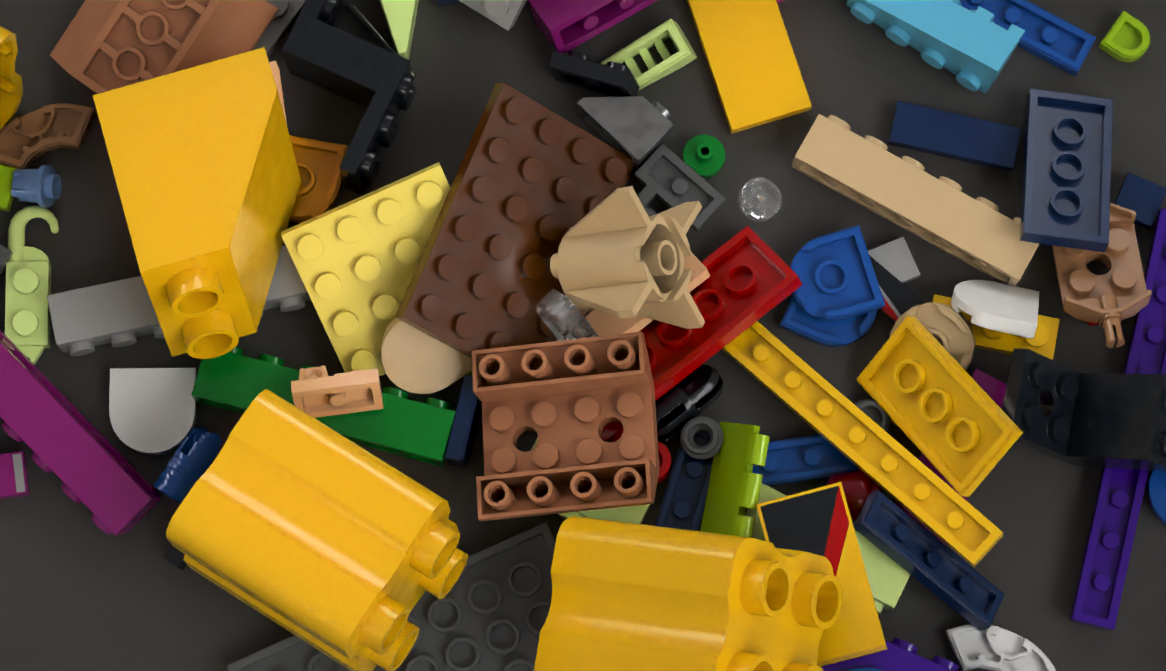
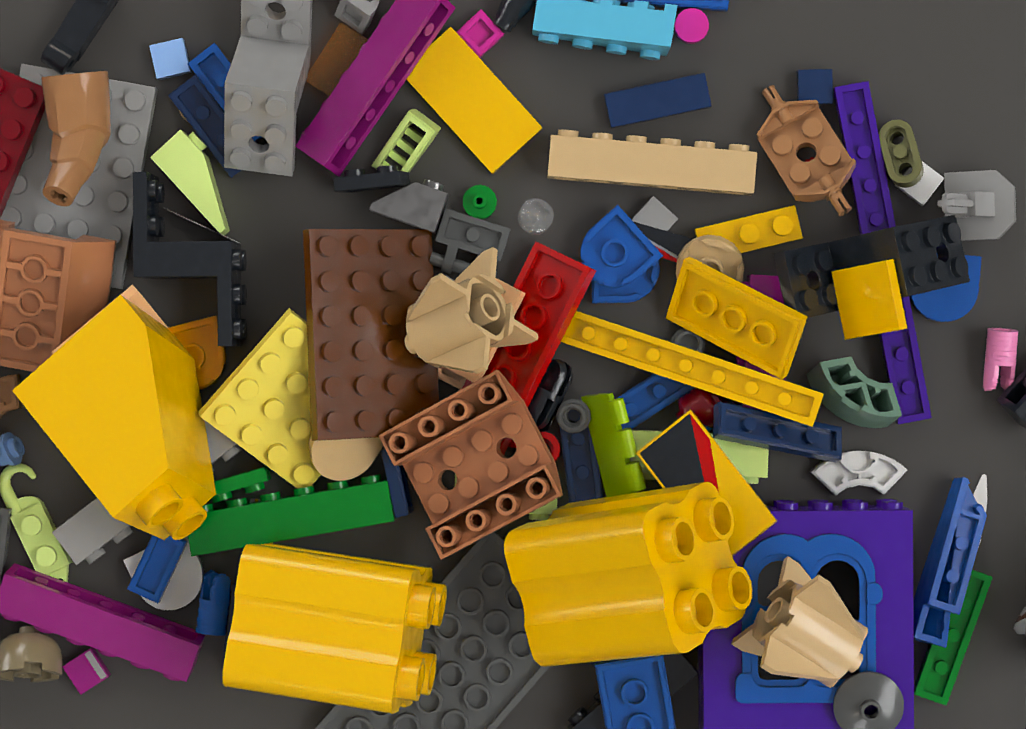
camera: 20 degrees left, 10 degrees up
(147, 390) = (157, 567): none -> blue tile
(296, 342) = (250, 481): none -> green plate
(337, 394) = (283, 516): light nougat hinge -> none
(563, 317) = (437, 379): clear beam -> none
(998, 306) = (746, 219): white tile -> none
(1028, 71) = (691, 26): none -> dark pink tile
(1036, 561) = (854, 395): none -> sand green brick
(1067, 170) = (753, 92): dark blue plate -> none
(1101, 449) = (869, 299): none -> yellow tile

